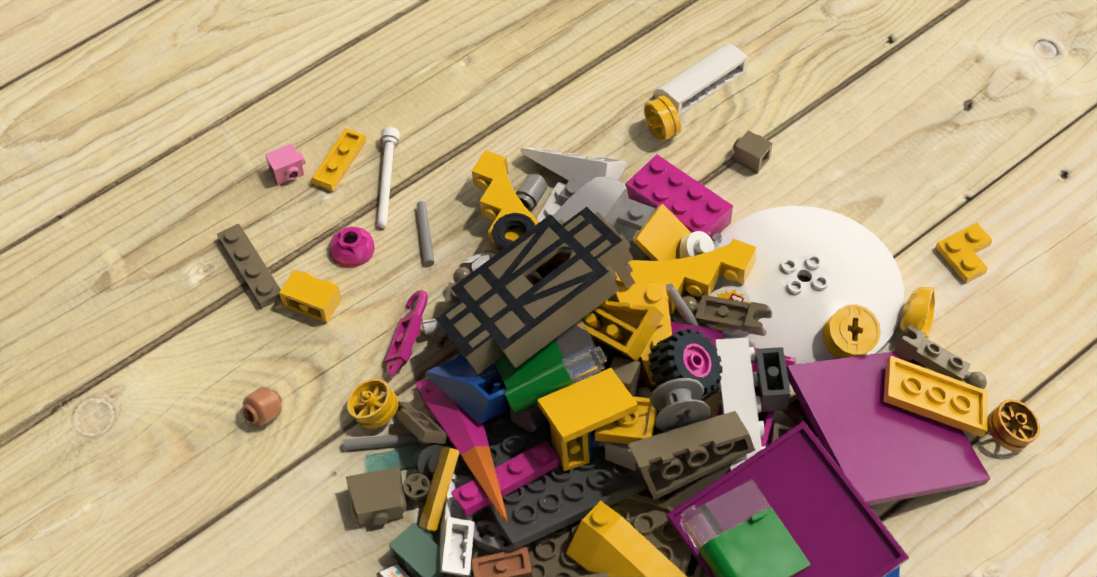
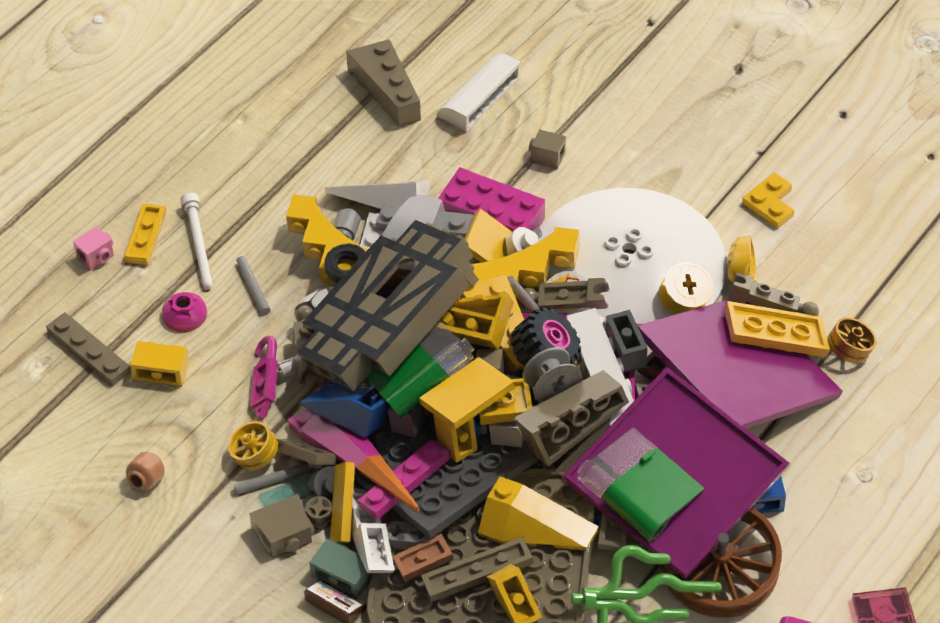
camera: 15 degrees left, 5 degrees down
(611, 45) = (385, 77): none -> dark tan wedge
(662, 118) = (454, 134): yellow wheel -> none

